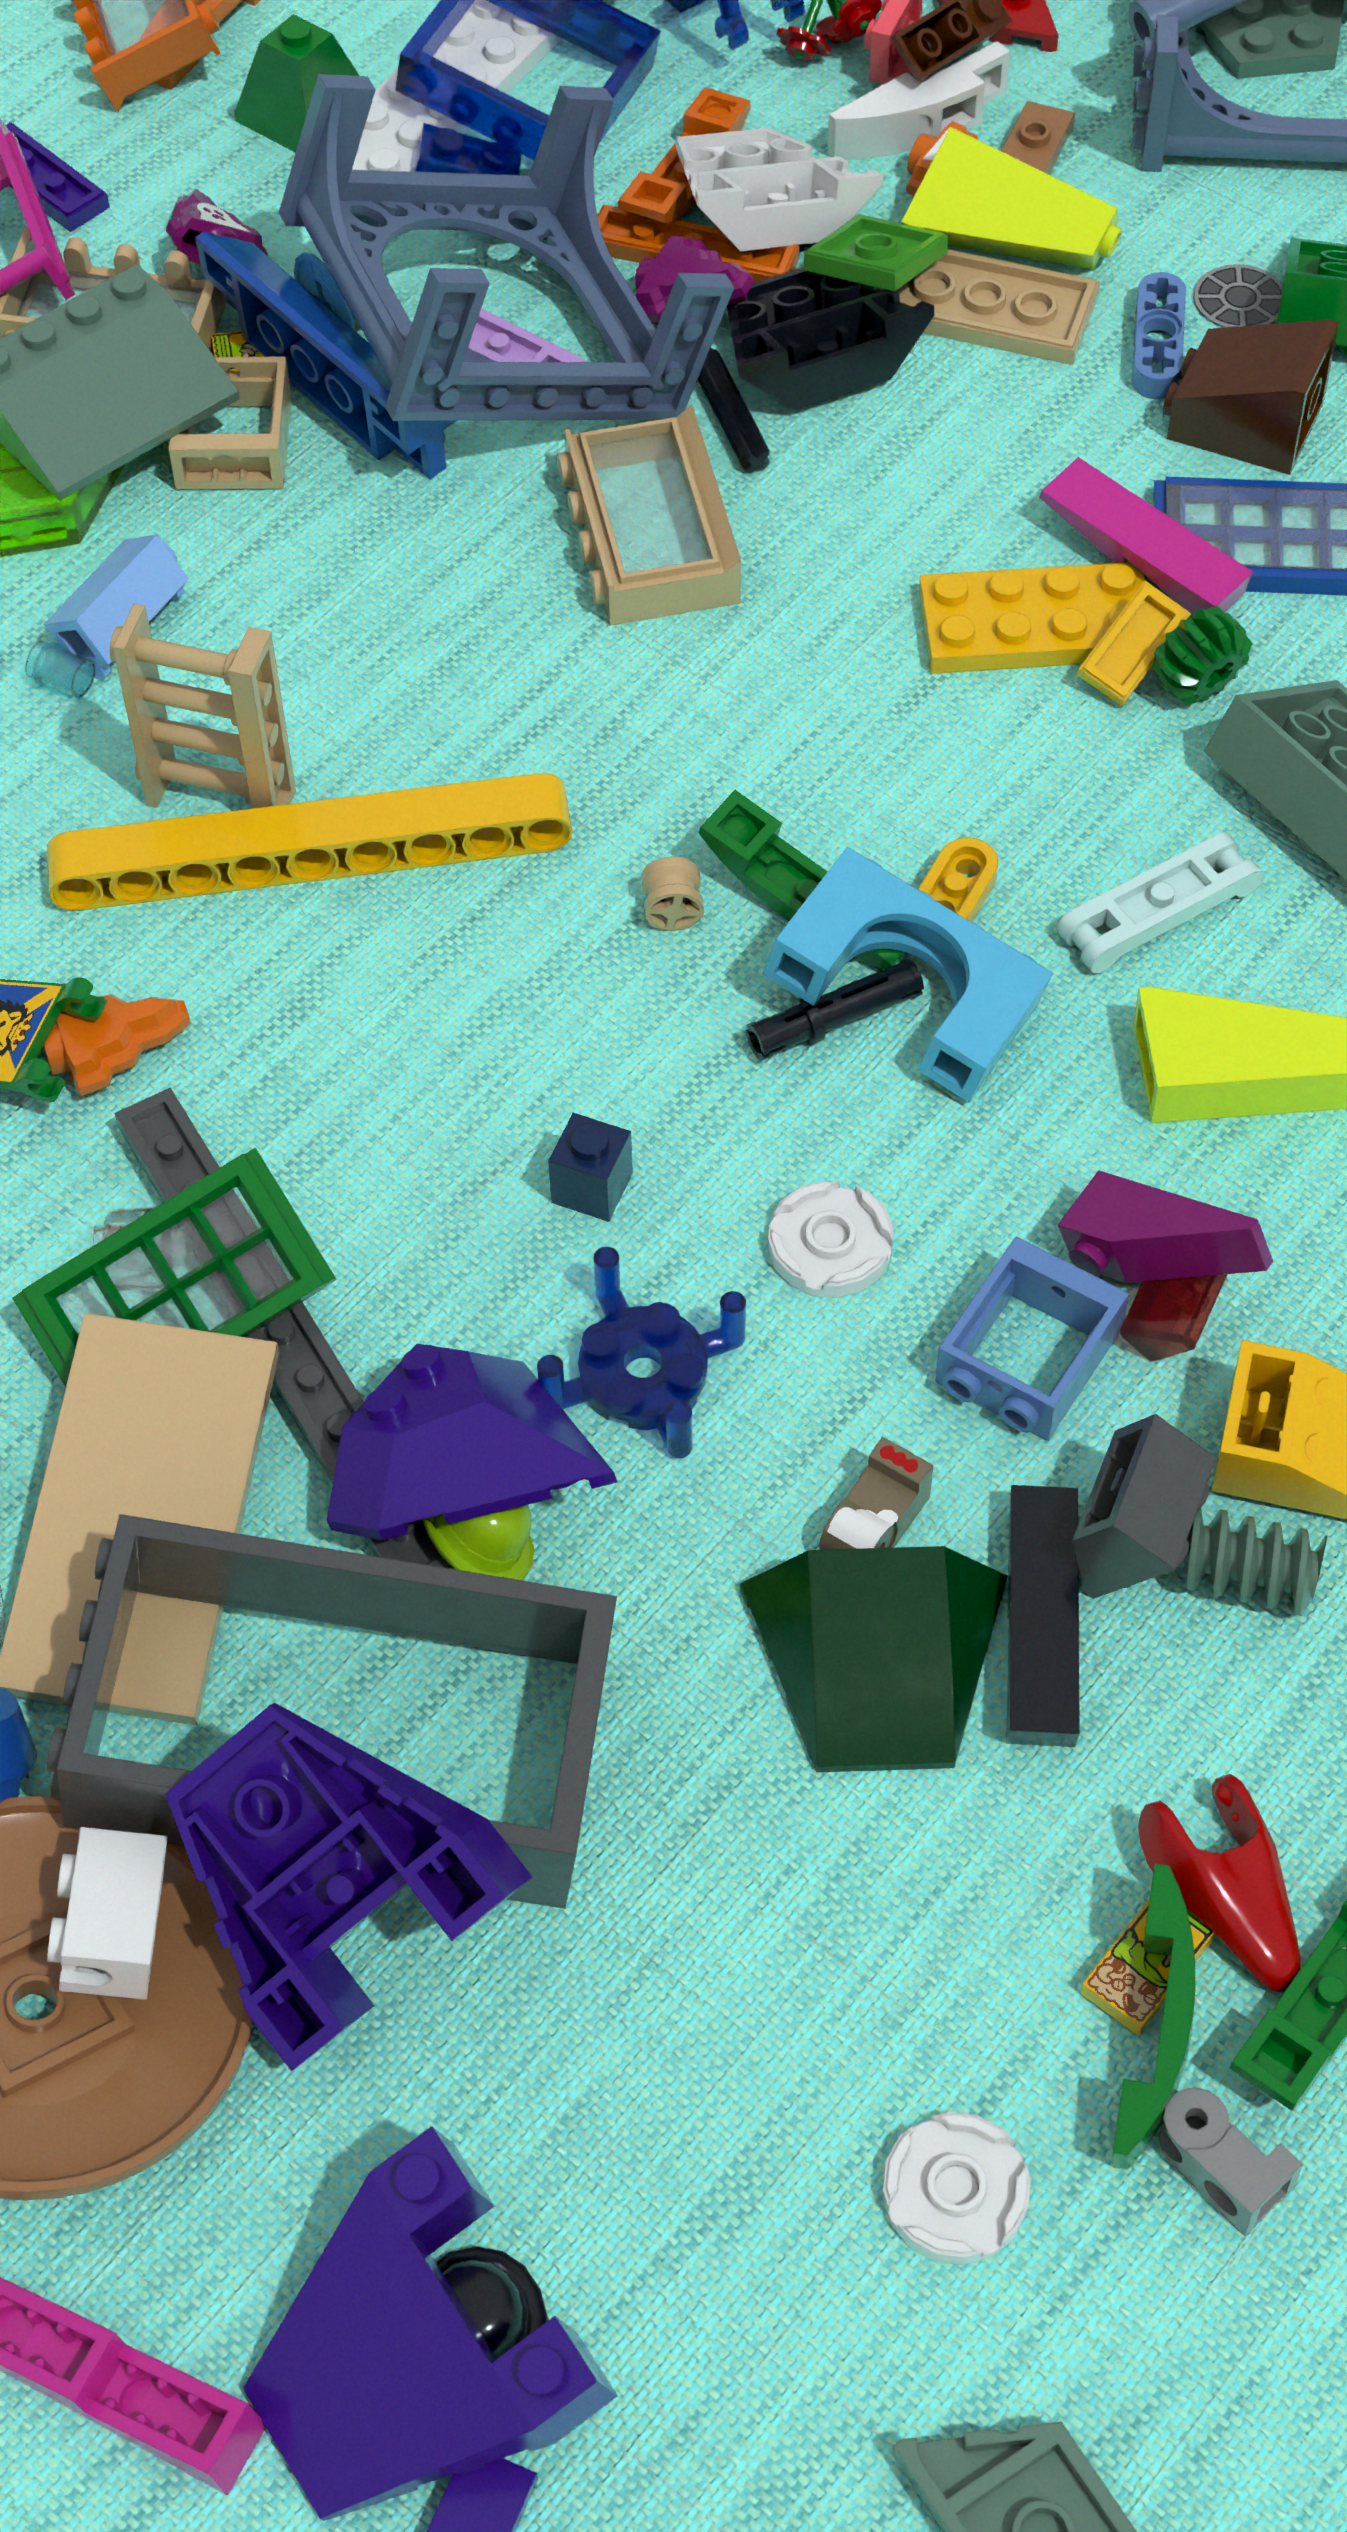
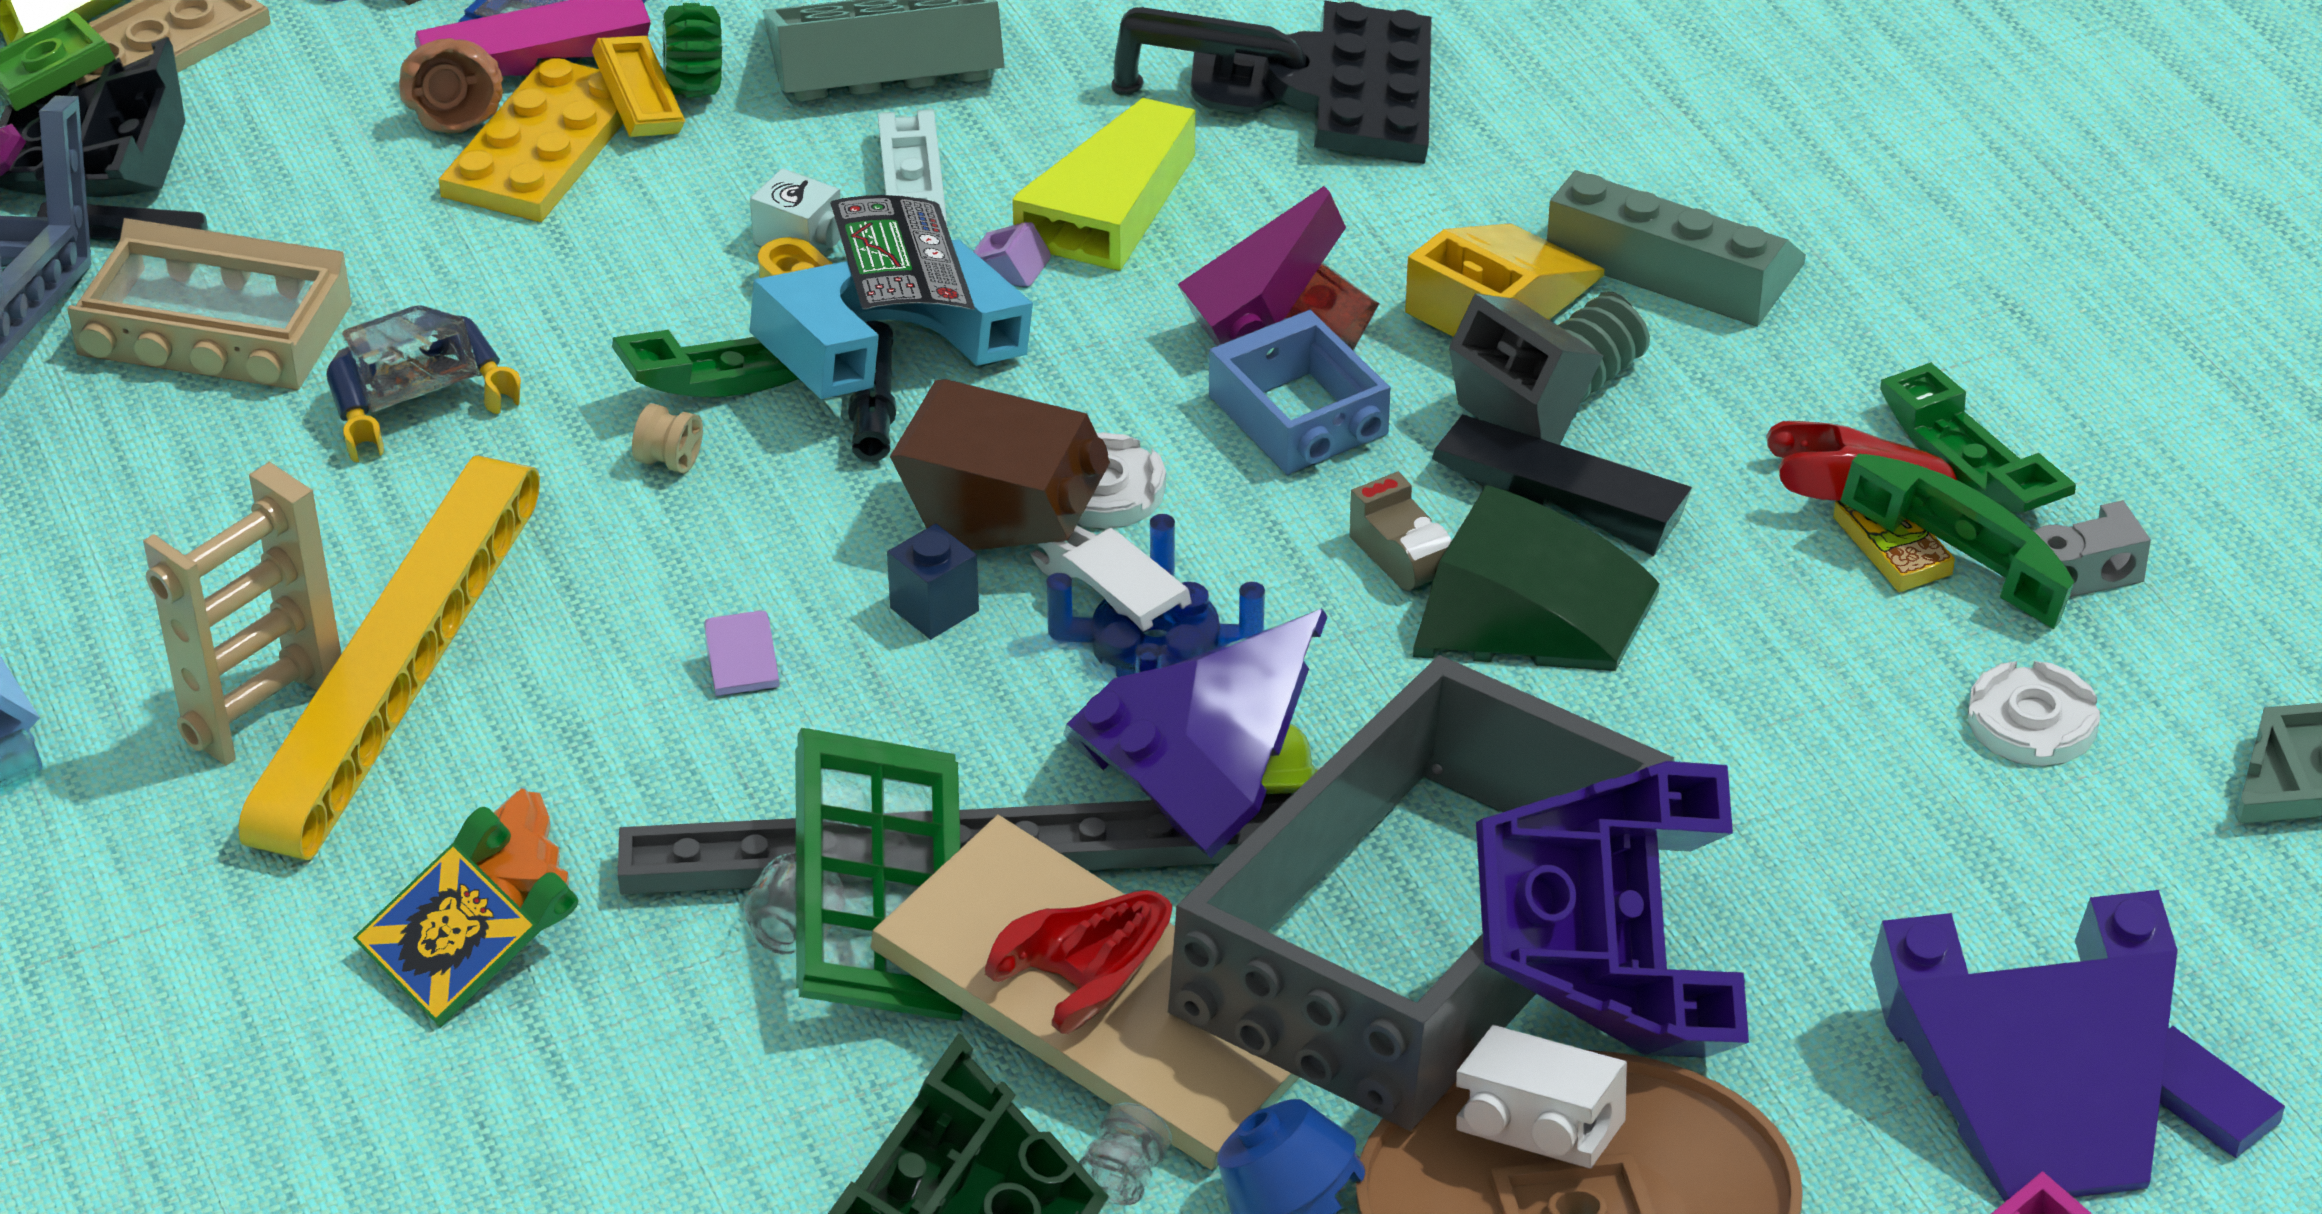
camera: 65 degrees left, 15 degrees down
(147, 1480) = (1088, 945): none -> red animal
(437, 1075) = (741, 653): none -> lavender slope
(646, 668) = (407, 358): none -> clear torso
(672, 1297) = (1117, 571): none -> white arm
(734, 1141) = (999, 466): none -> reddish brown slope
(985, 938) = (900, 251): none -> sticker
(1031, 518) = (451, 85): none -> nougat hair
(1033, 842) = (795, 208): none -> light aqua brick
(1104, 1028) = (1015, 253): none -> lavender slope

